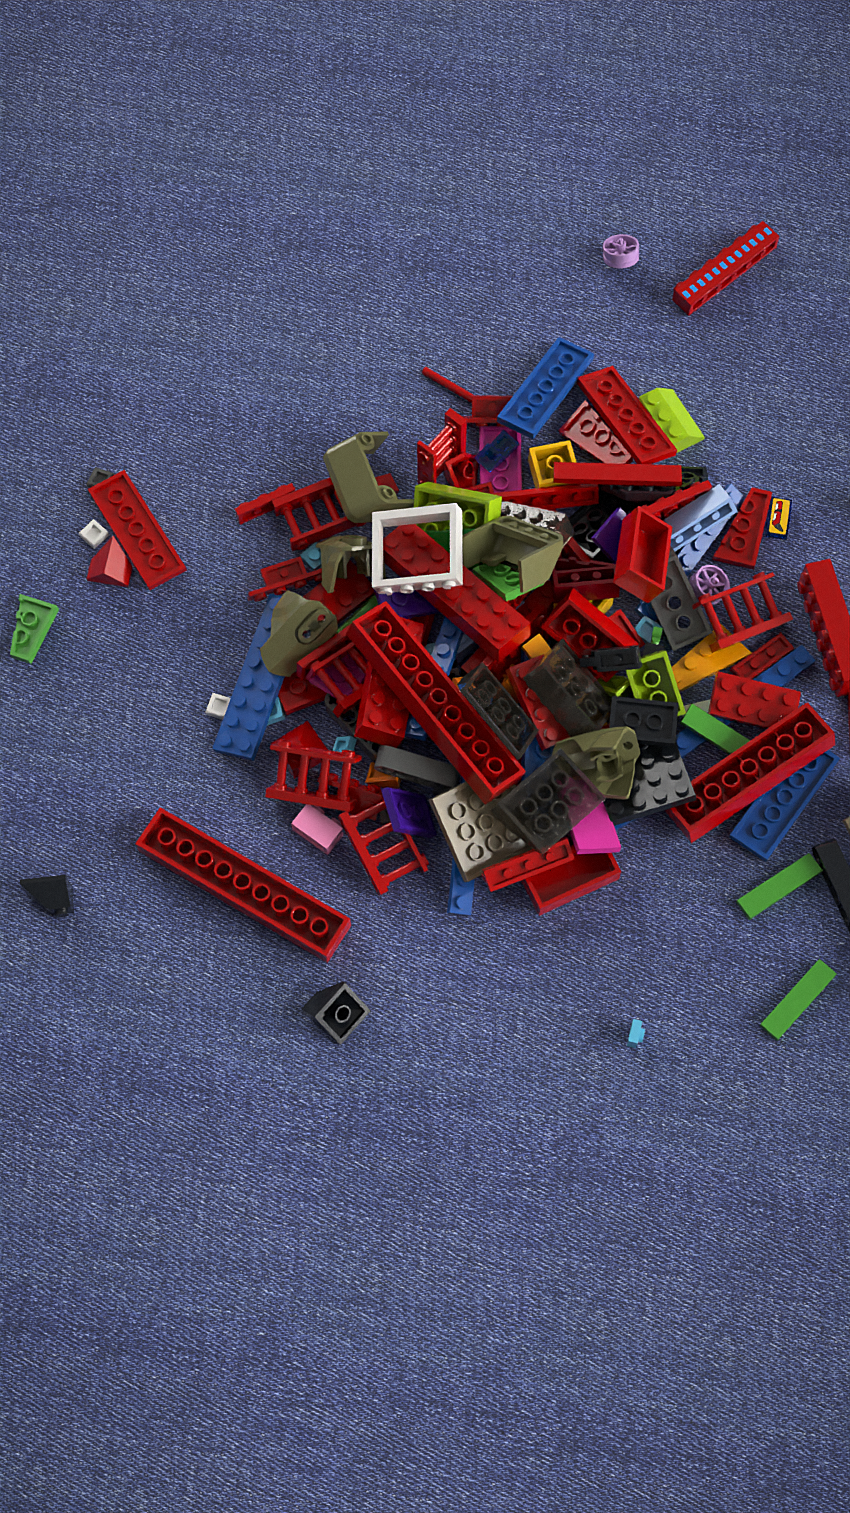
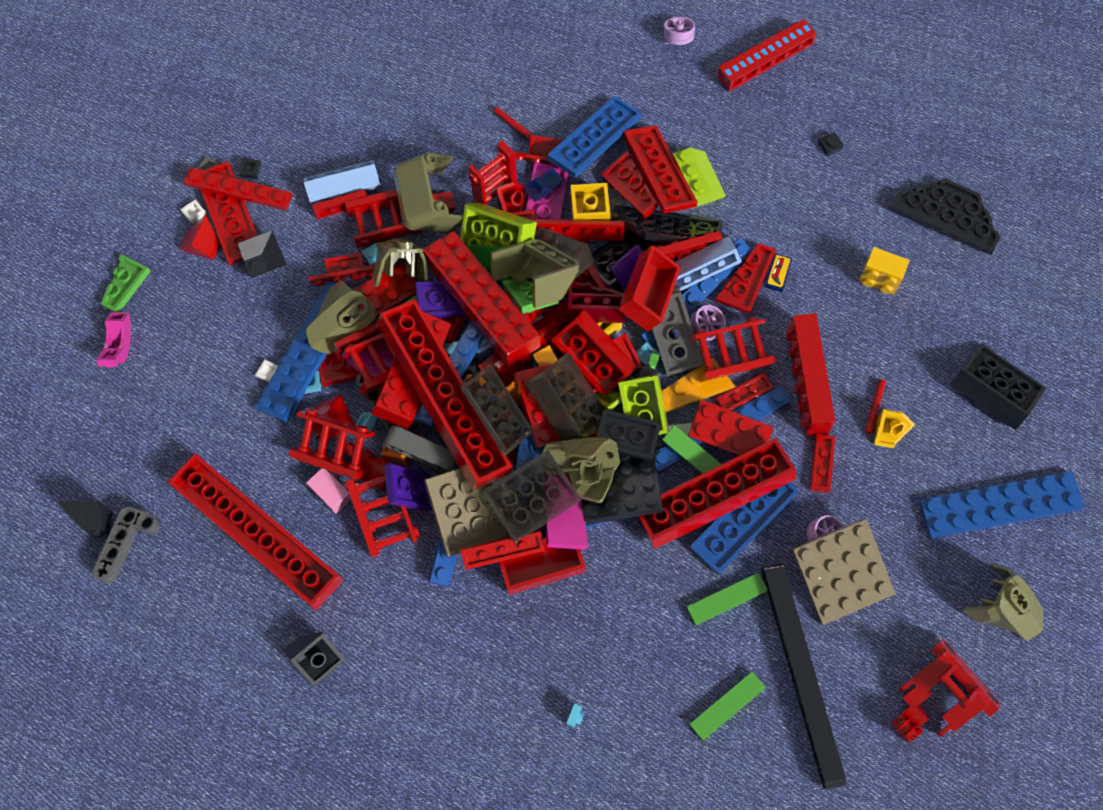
camera: 10 degrees right, 0 degrees up
(38, 692) = (117, 340): none -> dark pink arch
(94, 922) = (122, 546): none -> dark grey beam
(143, 500) = (238, 189): none -> red plate
(150, 475) = (250, 168): none -> black plate
(186, 573) = (261, 254): none -> black slope
(263, 477) = (341, 181): none -> light blue brick
(414, 516) = (453, 228): white window -> none
(613, 659) = (609, 376): black hinge -> none
(617, 474) = (642, 216): red tile -> none
(814, 362) = (831, 144): none -> black plate

